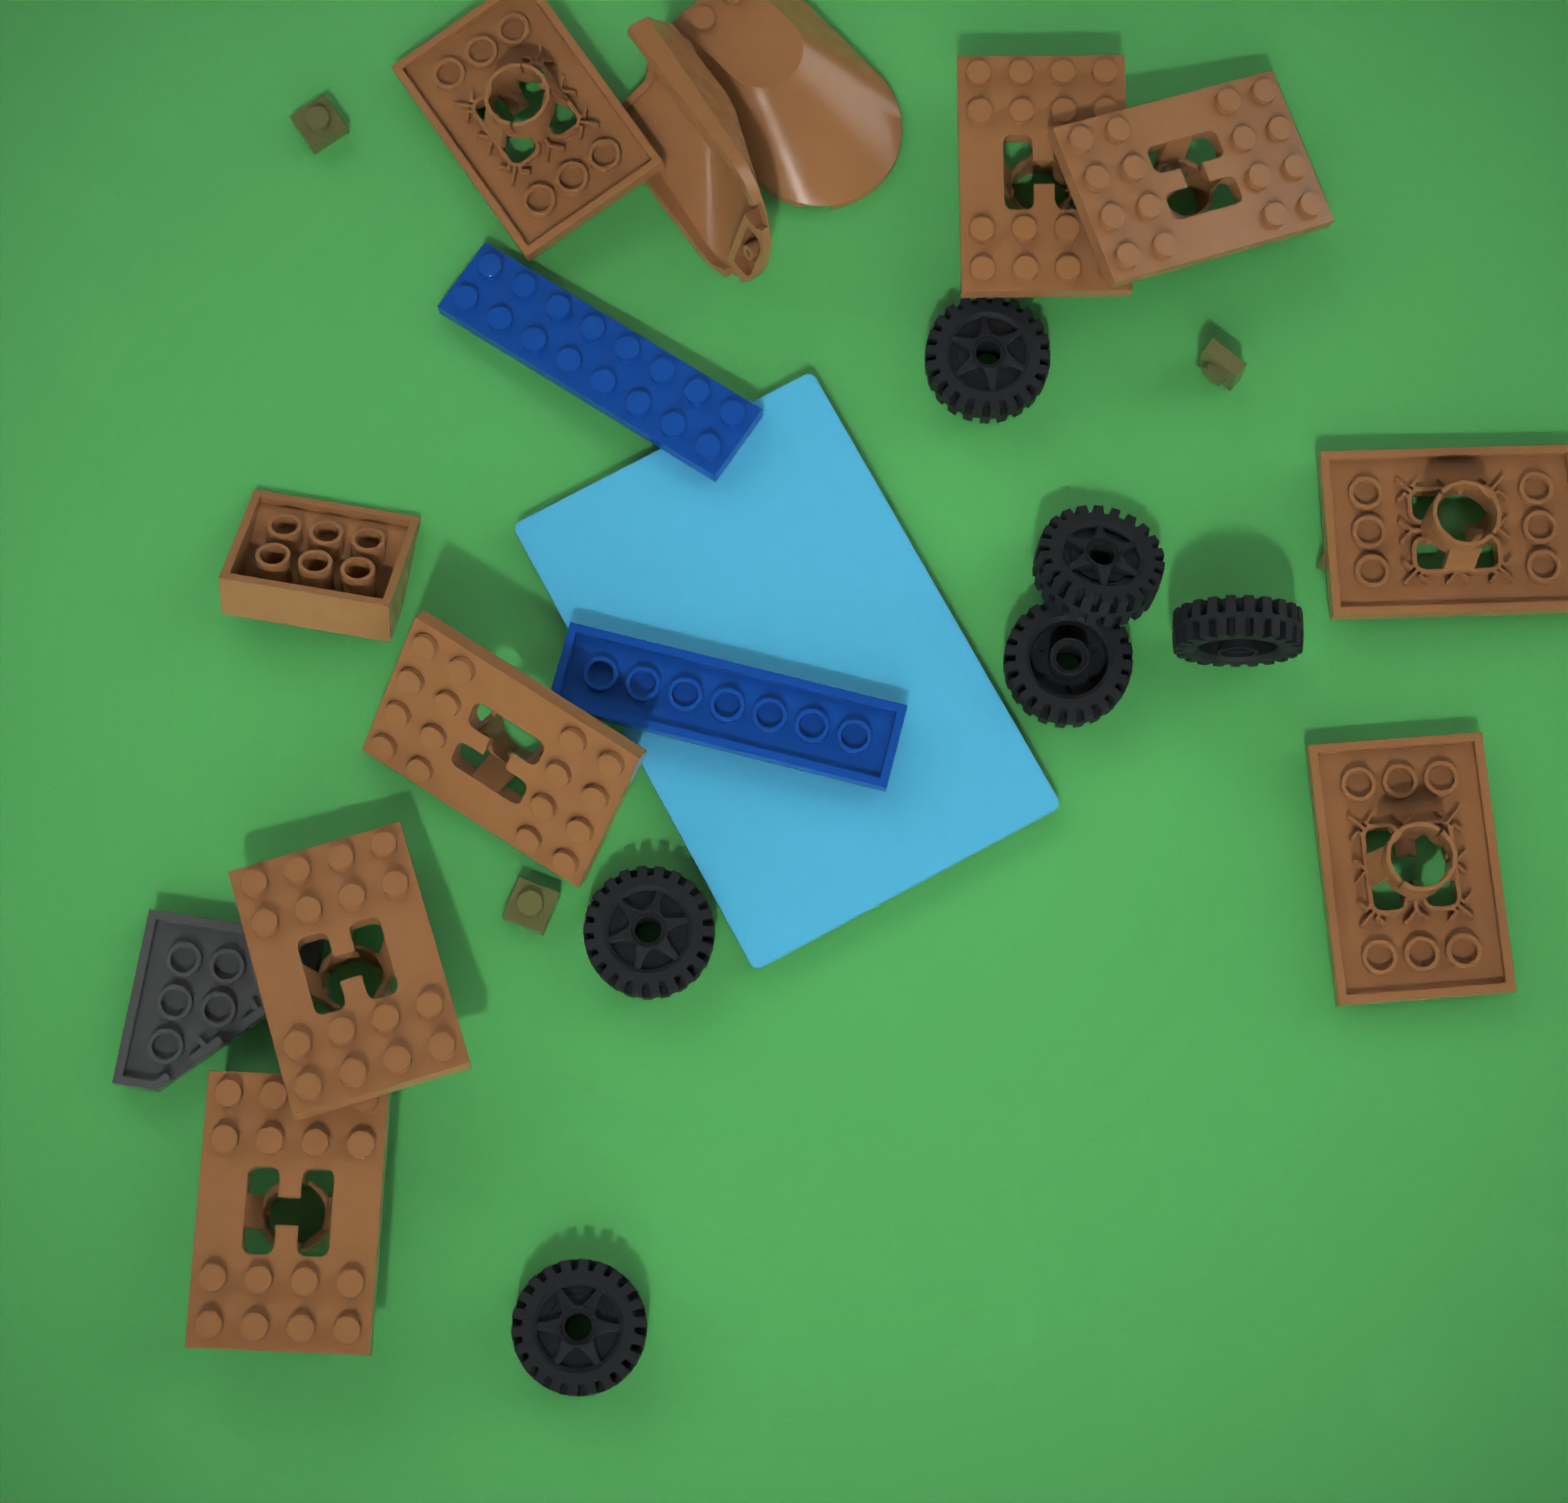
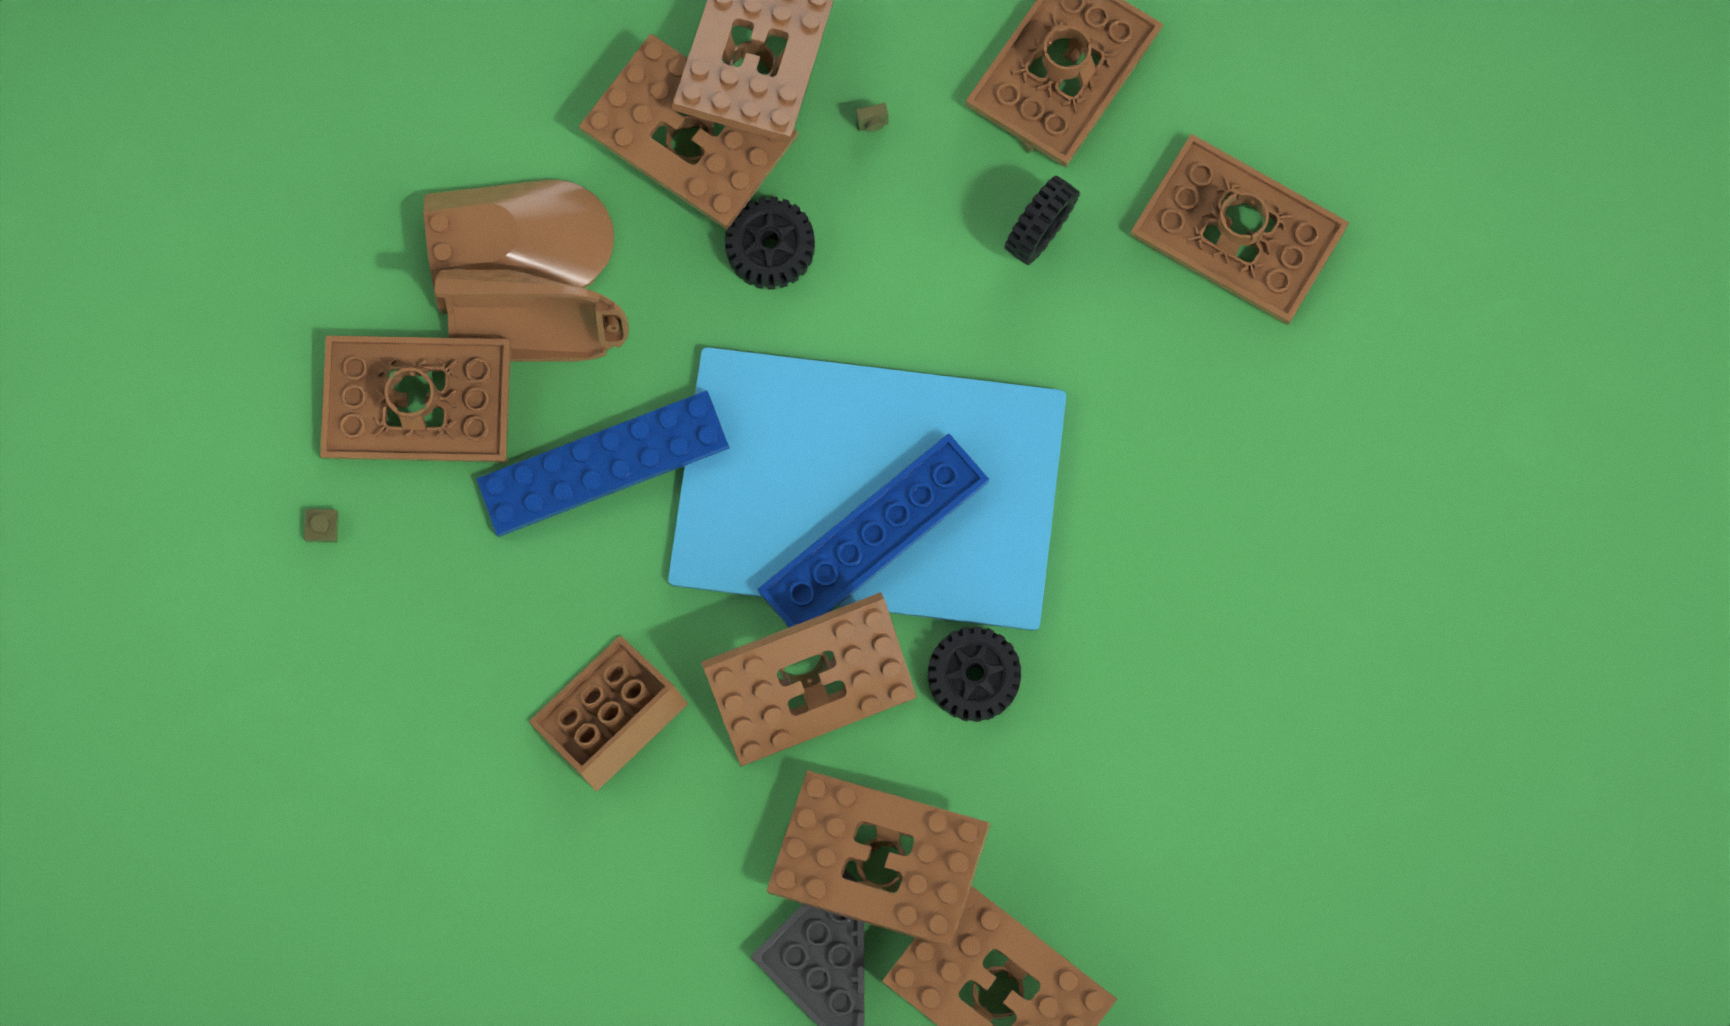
camera: 55 degrees left, 0 degrees up
(531, 906) = (908, 732): olive plate -> none
(543, 1318) = (1203, 868): black wheel -> none
(1059, 693) = (991, 305): black wheel -> none
(1098, 566) = (944, 269): black wheel -> none

